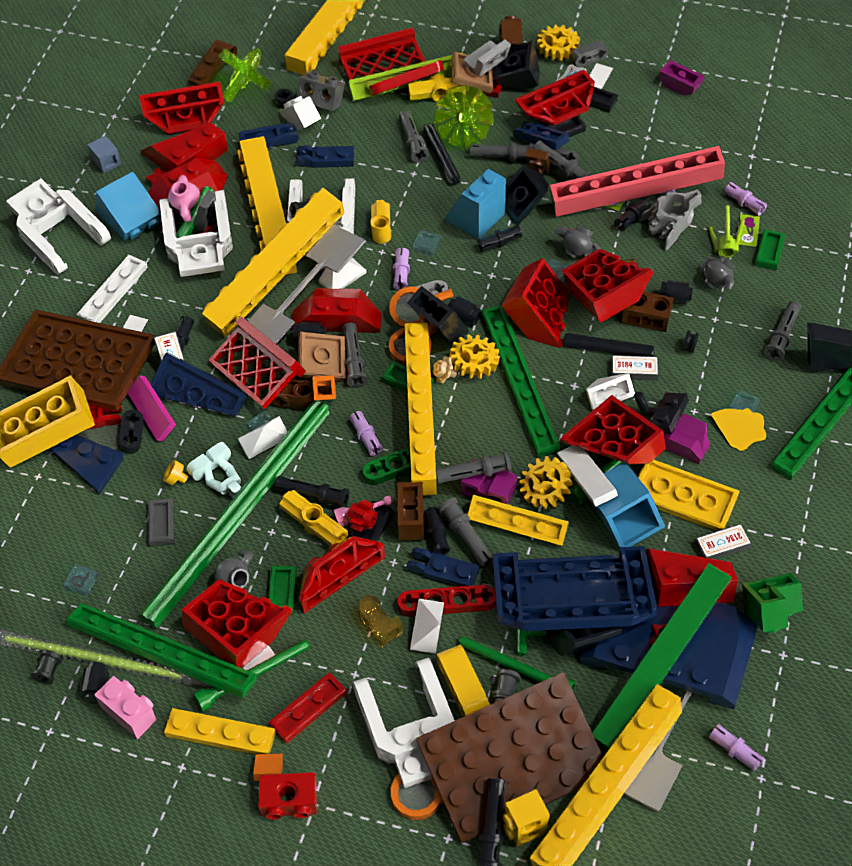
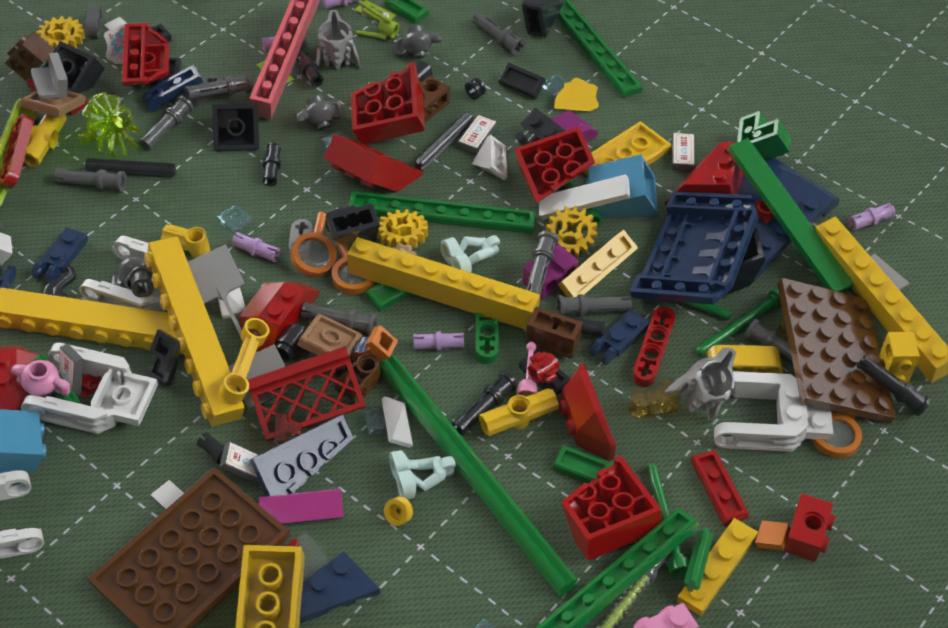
camera: 70 degrees left, 5 degrees down
(112, 289) = (105, 499): white tile -> none
(126, 430) = (319, 535): black beam -> none
(161, 522) = (449, 544): dark grey tile -> none
(211, 710) = (698, 559): none -> green axle
(213, 363) = (284, 428): none -> clear red tile
(235, 569) = (550, 492): dark grey piece -> none
(245, 254) = (165, 358): none -> black slope
(260, 306) = (244, 360): none -> yellow piece
(287, 171) = (56, 285): none -> black piece
(400, 648) = (706, 383): none -> light grey piece
(427, 626) = (674, 359): white slope -> none
(470, 404) = (456, 258): none -> light aqua piece
(479, 205) = (226, 157): dark azure slope -> none
(538, 160) = (207, 97): reddish brown plate -> none
(728, 373) = (522, 80): none -> black tile

